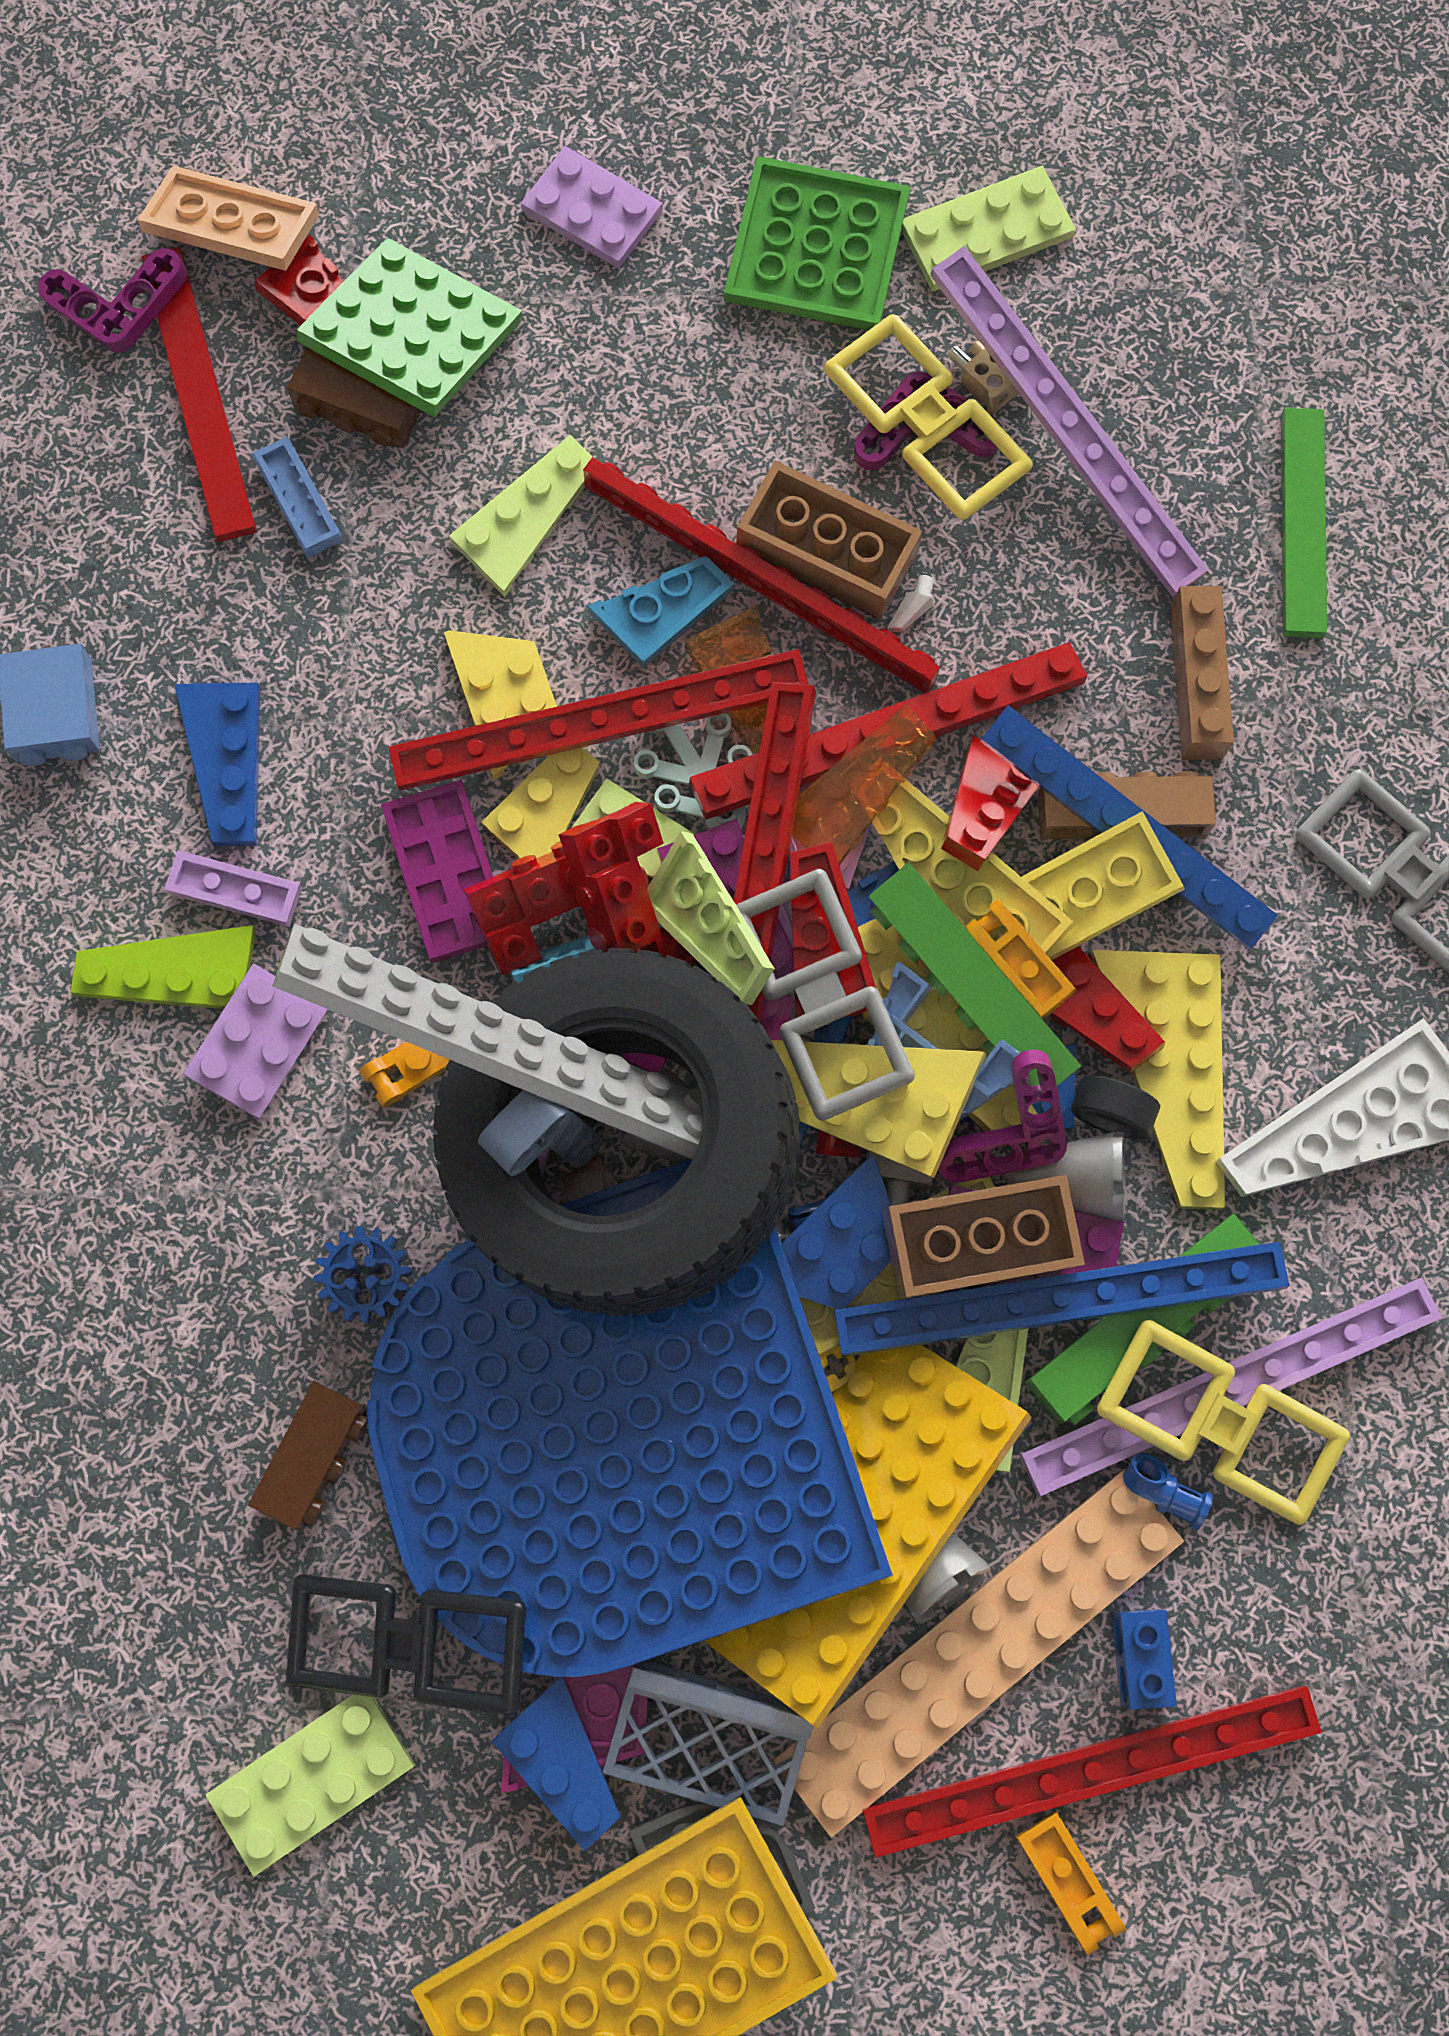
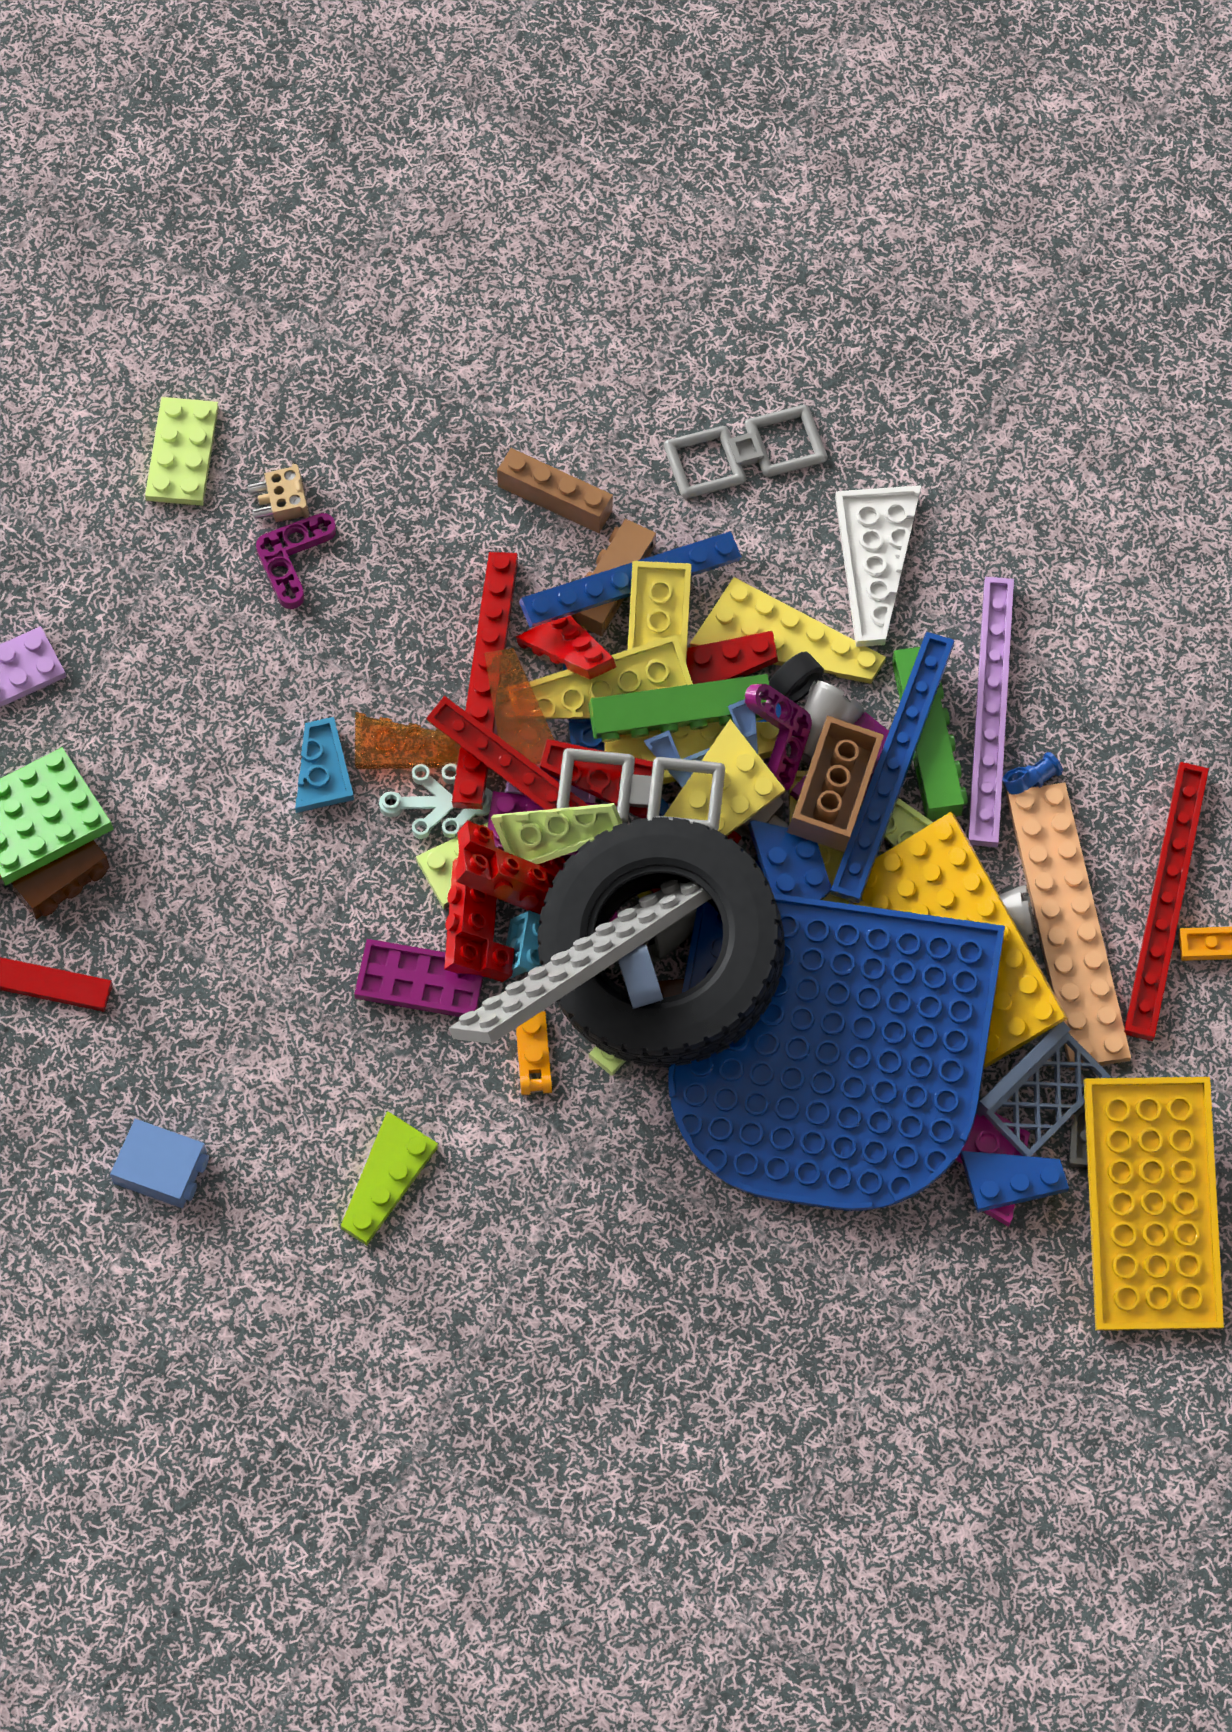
camera: 60 degrees left, 10 degrees down
(224, 749) = (252, 1072): blue wing -> none
(233, 888) = (355, 1111): lavender plate -> none
(254, 1043) = (466, 1144): lavender plate -> none
(297, 497) = (107, 945): medium blue plate -> none
(309, 1457) = (750, 1236): reddish brown brick -> none
(309, 1781) = (945, 1333): yellowish green plate -> none
(343, 1258) = (669, 1146): blue gear -> none
(406, 1644) = (895, 1229): black bar -> none
(499, 677) = (320, 889): light yellow wing -> none
(514, 524) = (206, 819): yellowish green wing -> none
(543, 804) = (411, 904): light yellow wing -> none
(593, 720) = (378, 839): red plate -> none
(772, 582) = (327, 704): red plate -> none
(816, 243) = (129, 551): bright green plate -> none
(829, 539) = (340, 647): medium nougat brick -> none
(913, 605) = (409, 625): white bar -> none
(928, 416) = (292, 549): light yellow bar -> none
(1022, 960) = (682, 671): light orange plate -> none
(1068, 421) = (349, 472): lavender plate -> none
(1143, 1659) = (1119, 837): blue brick -> none
(1223, 1422) = (1009, 722): light yellow bar -> none
(1303, 523) = (490, 385): bright green tile -> none

